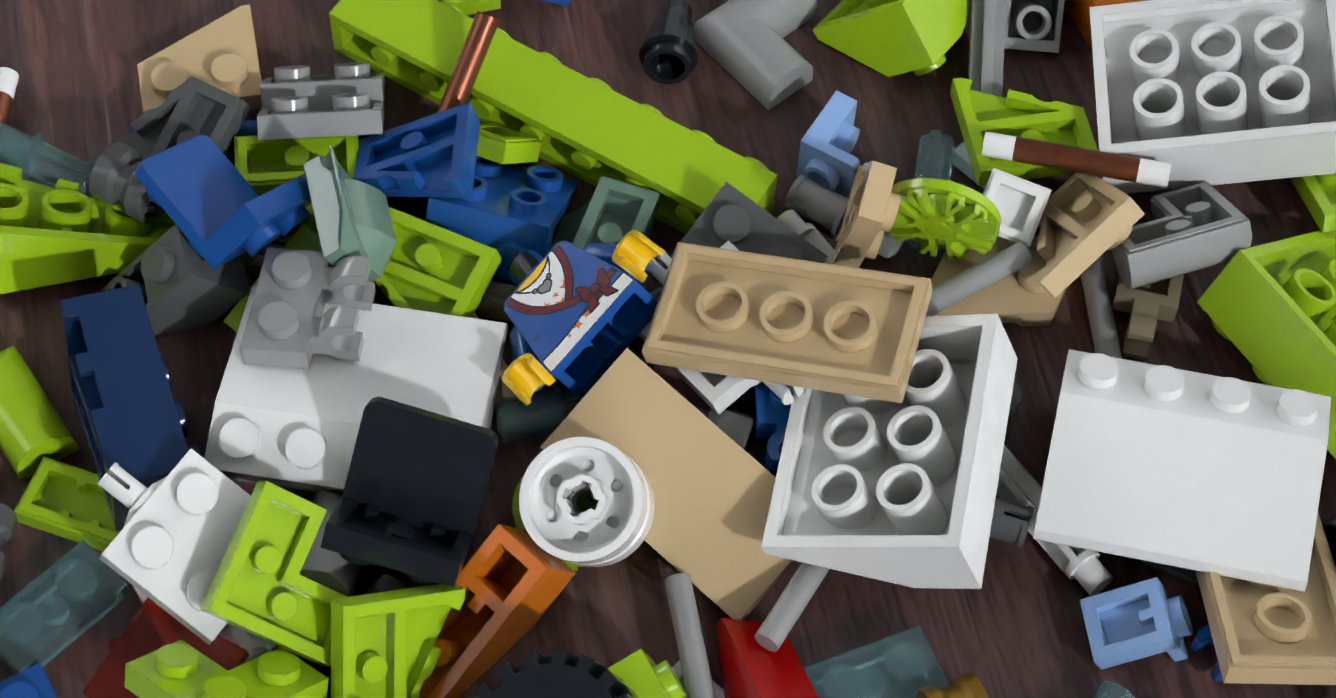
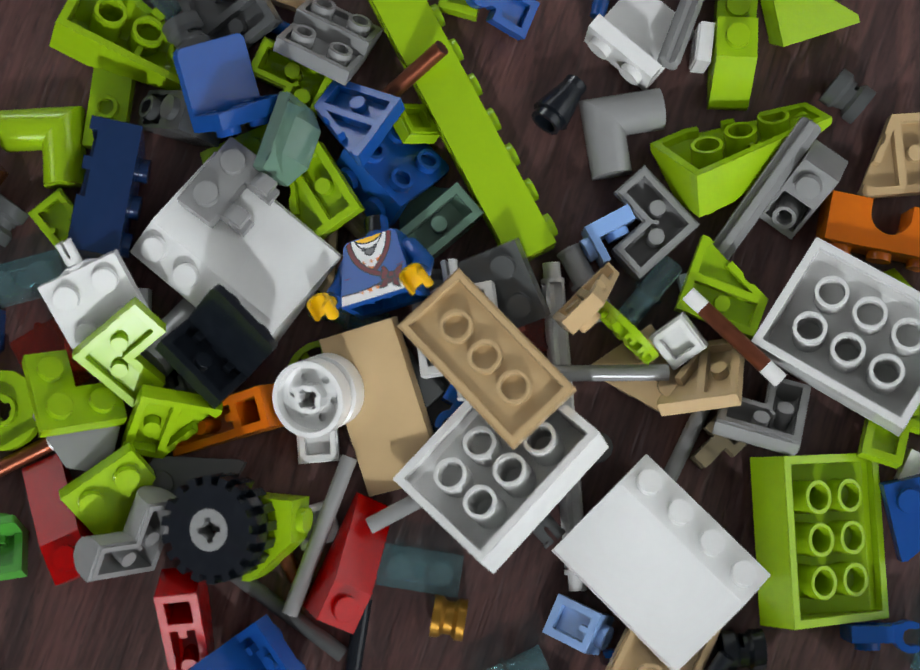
camera: 35 degrees right, 25 degrees up
(43, 329) = (109, 98): none -> lime plate
(617, 597) = (319, 449): none -> white tile
(890, 103) = (661, 226): none -> light grey brick

